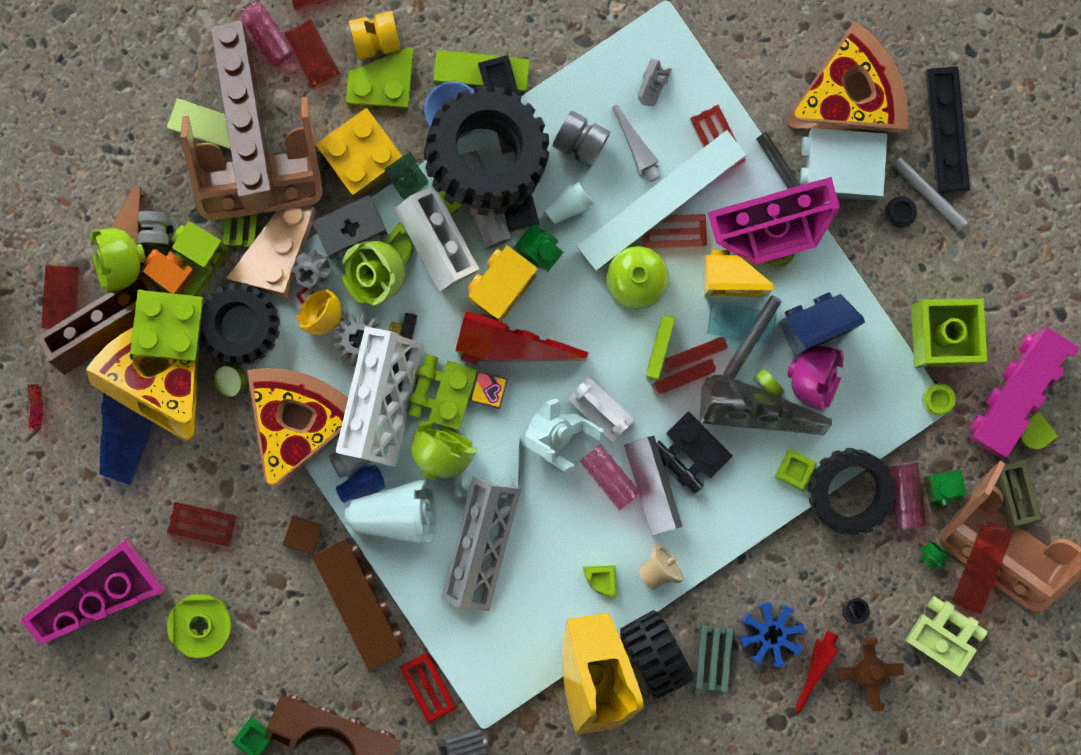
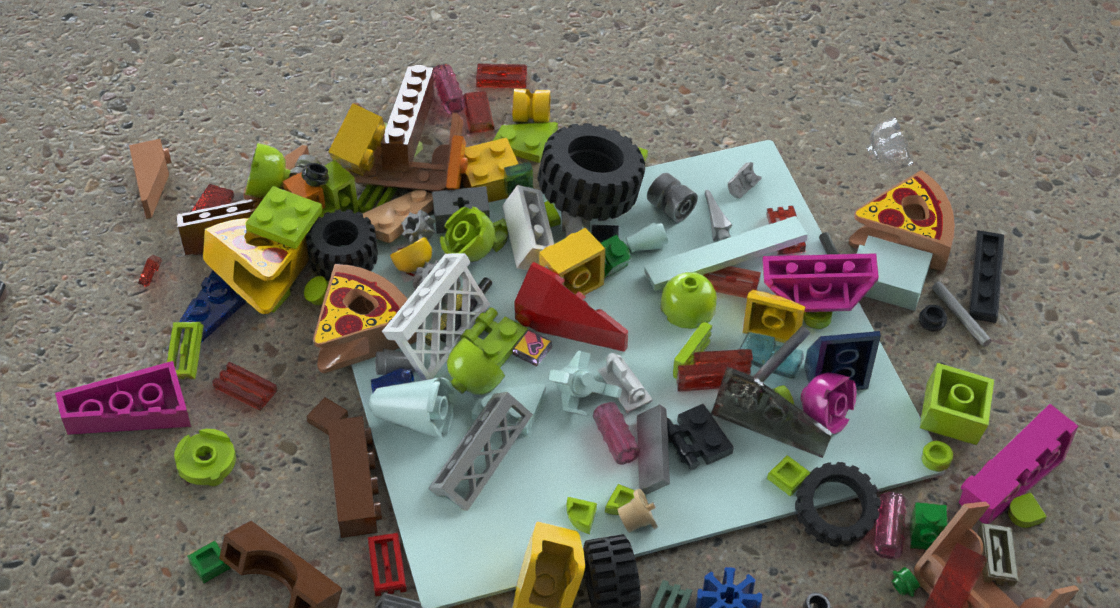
camera: 20 degrees right, 35 degrees down
(115, 480) = (194, 348): none -> lime tile
(179, 258) = (315, 174): none -> black plate
(209, 194) = (358, 140): none -> yellow brick
(327, 175) = (457, 163): none -> orange plate
(638, 551) = (619, 497): none -> lime tile

